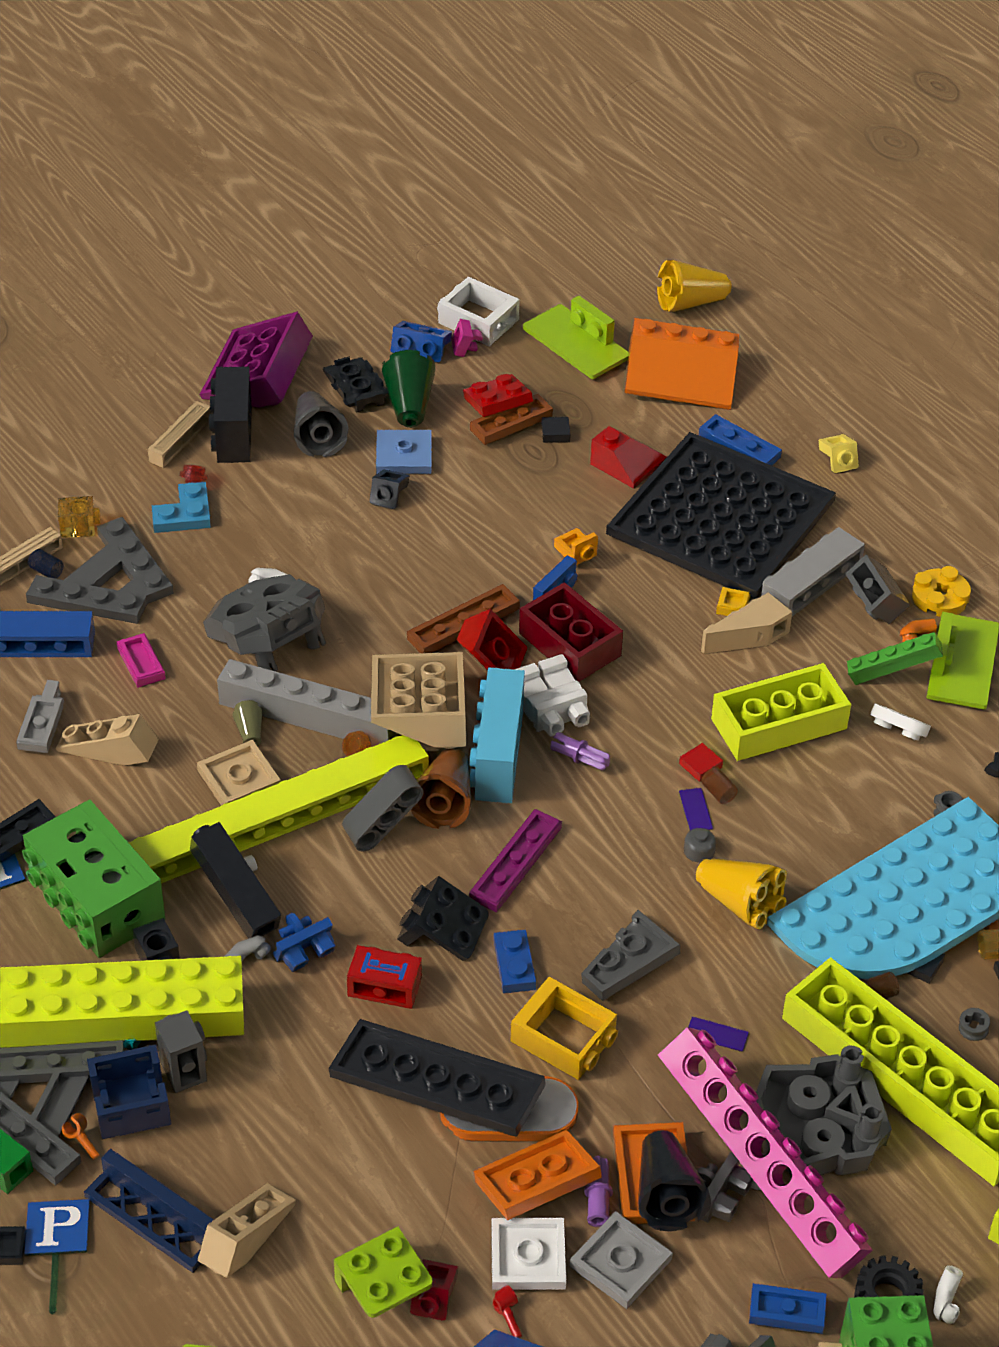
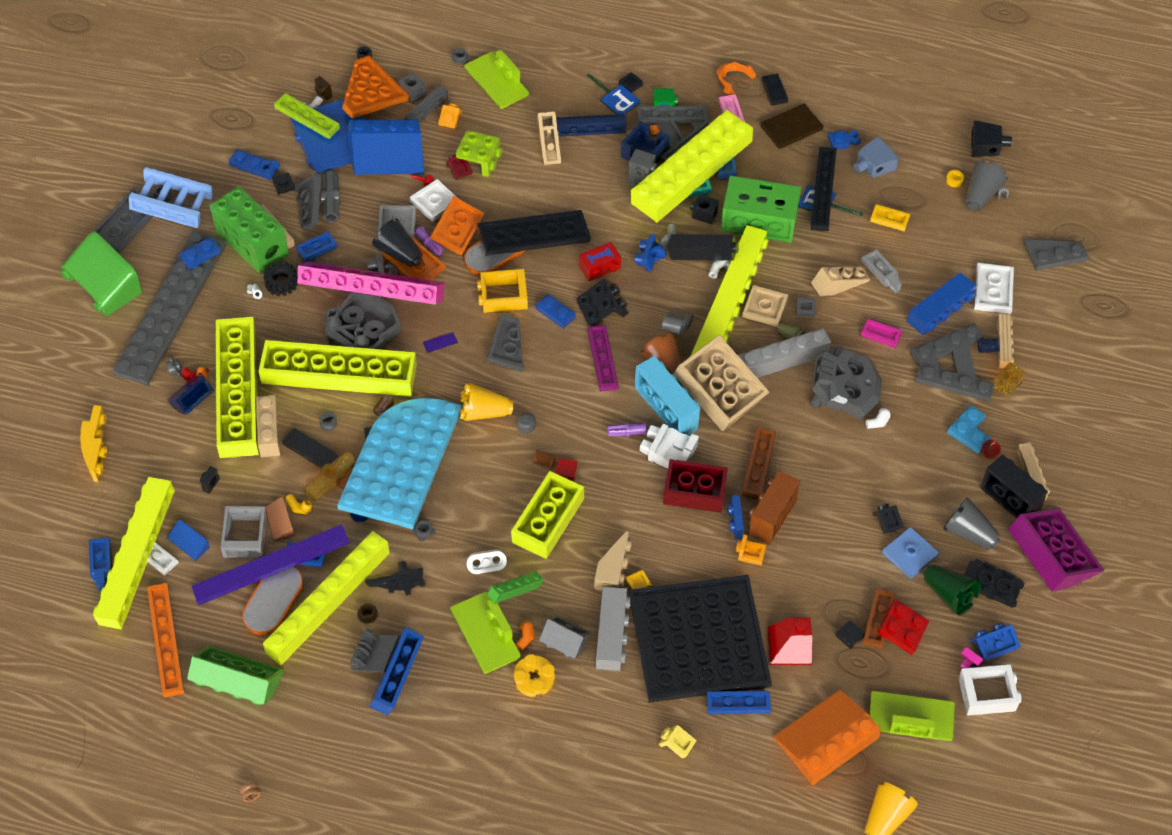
camera: 140 degrees right, 10 degrees up
(192, 740) = (806, 307): none -> dark grey plate
(491, 642) = (725, 448): red slope -> none
(508, 552) = (773, 507): none -> dark orange brick
(695, 808) = (546, 444): dark purple sticker -> none

